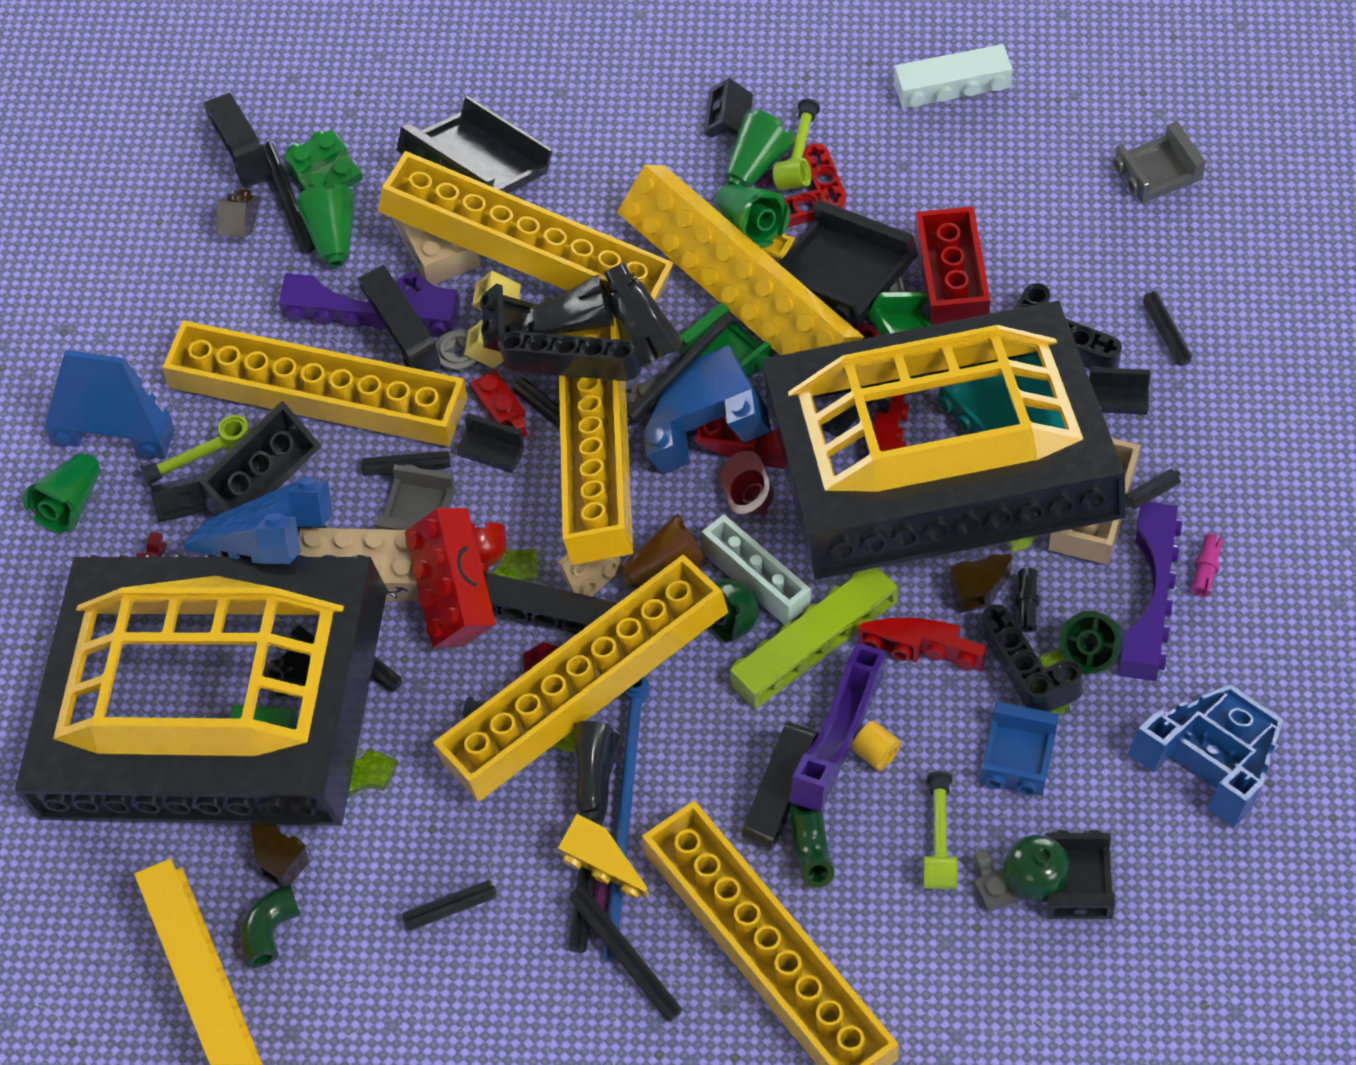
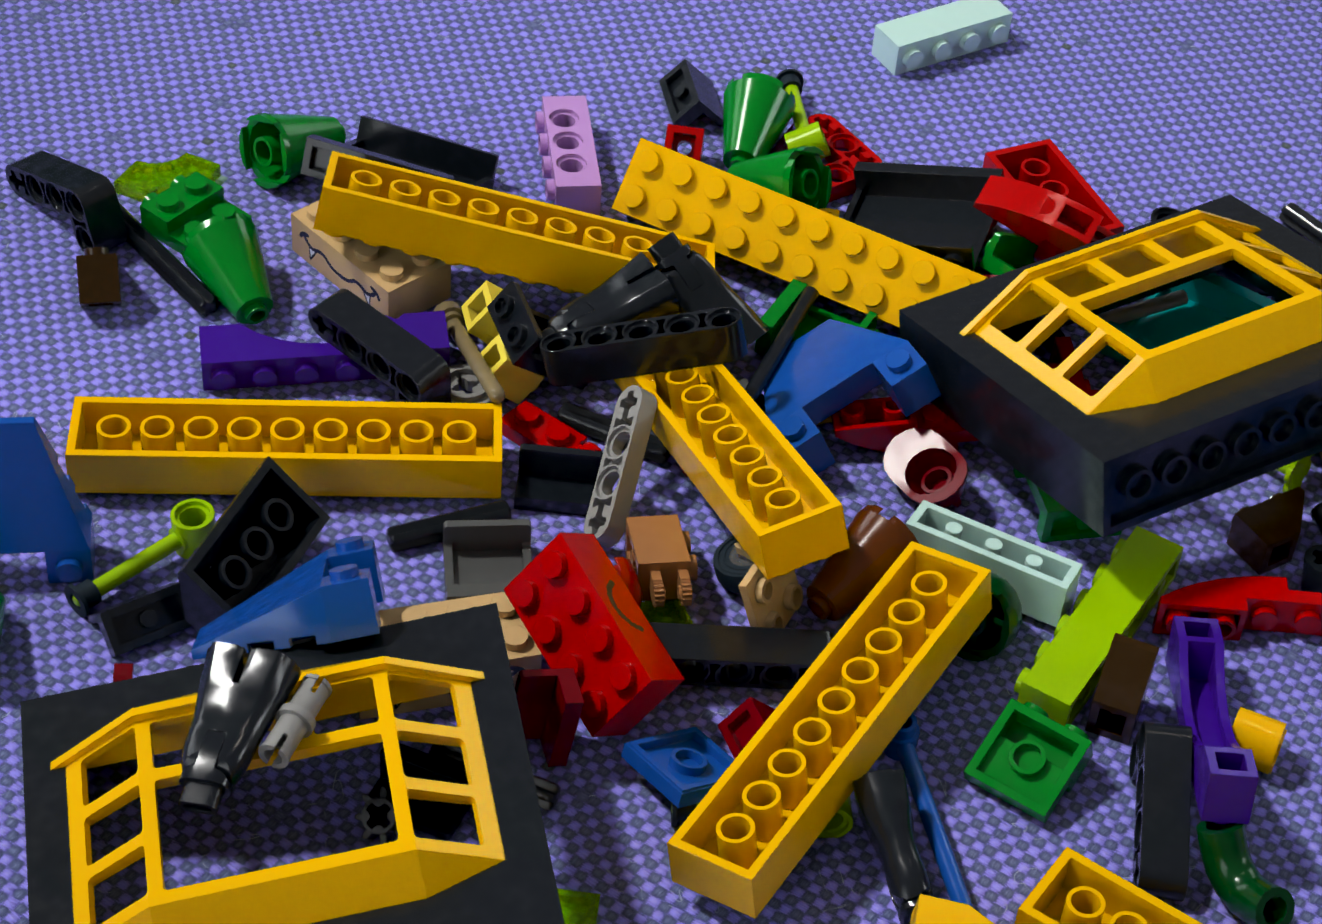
camera: 25 degrees left, 15 degrees down
(173, 608) = (230, 718): none -> black piece
(207, 622) = (295, 721): none -> light grey pin
(302, 125) = (145, 177): none -> clear neon green tile
(396, 109) = (276, 144): none -> green cone
(403, 621) = (550, 709): none -> dark red panel
(465, 290) = (456, 329): none -> dark tan piece
(479, 678) = (678, 764): none -> blue tile
(527, 444) = (631, 421): none -> light grey beam
(530, 522) = (661, 558): none -> medium nougat hinge
(610, 154) = (568, 153): none -> lavender brick
(689, 160) = (682, 134): none -> red plate
(714, 726) = (1029, 759): none -> green plate
(797, 689) = (1122, 688): none -> dark brown slope
(922, 286) = (1040, 213): none -> red slope
(1160, 164) = (1223, 86): dark grey panel -> none

